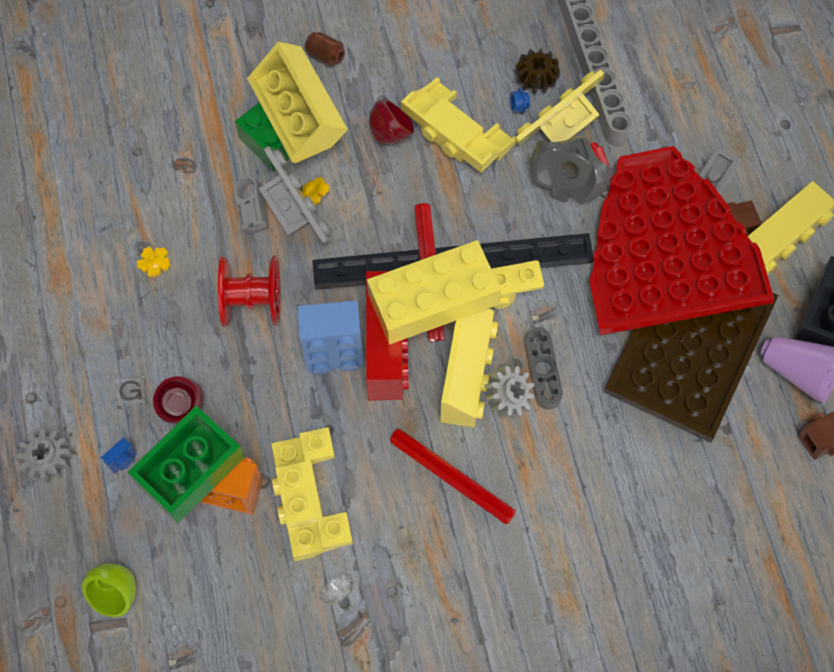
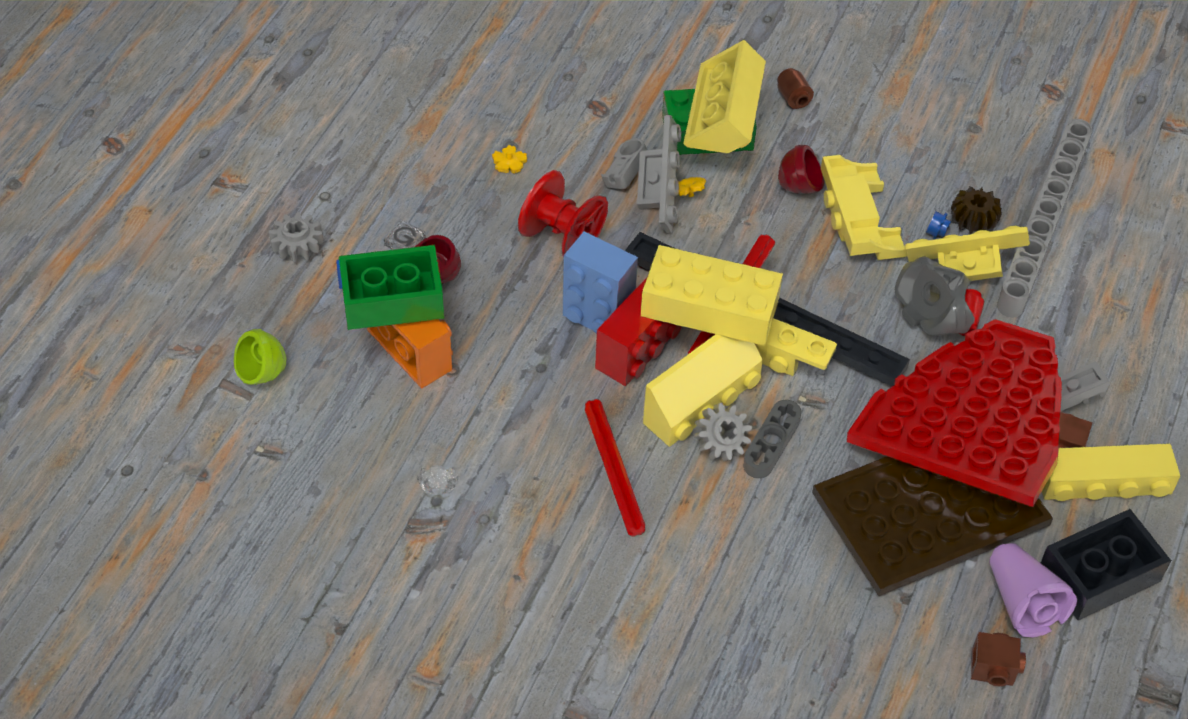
camera: 35 degrees right, 15 degrees down
(301, 509) = (470, 394): light yellow bracket -> none

